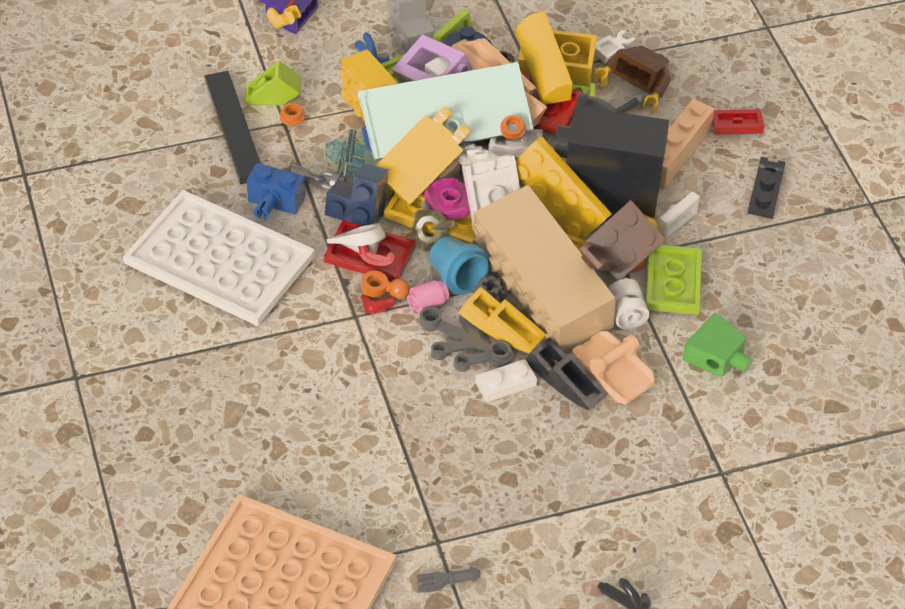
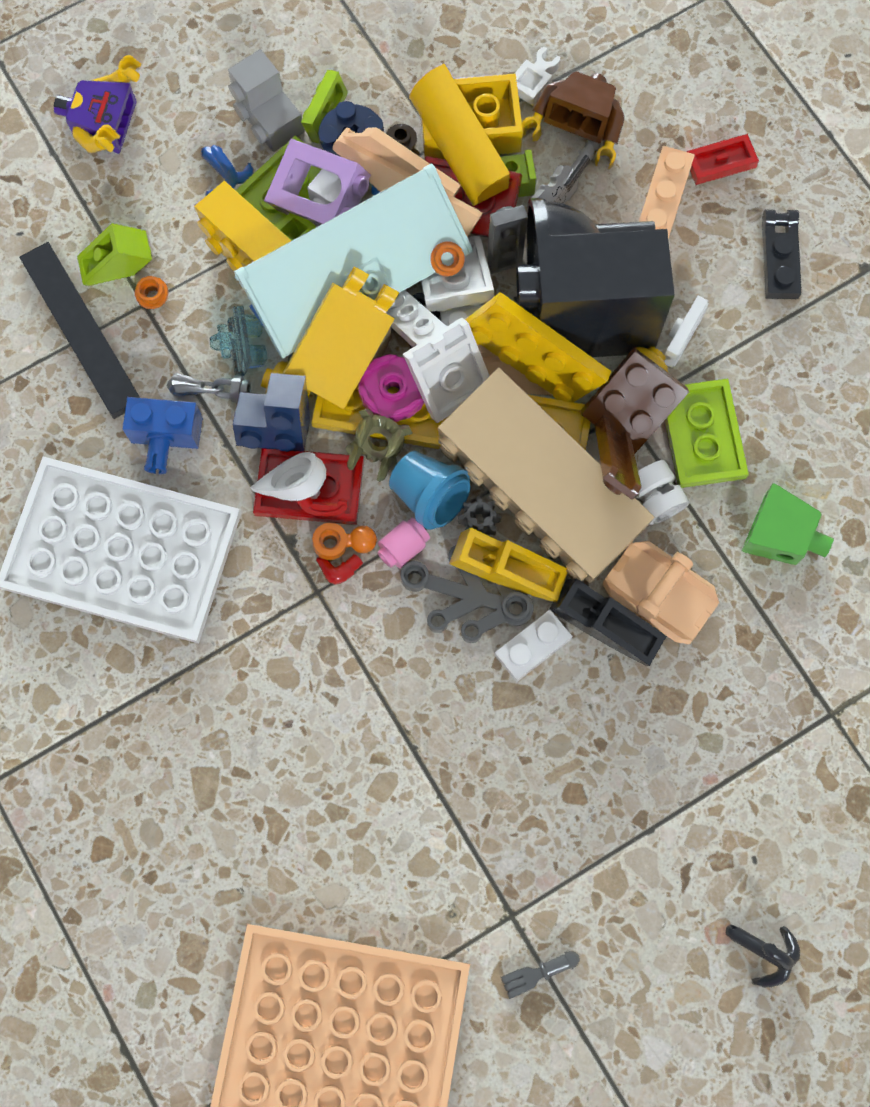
camera: 10 degrees left, 25 degrees up
(560, 112) = (506, 238): none -> flat silver plate

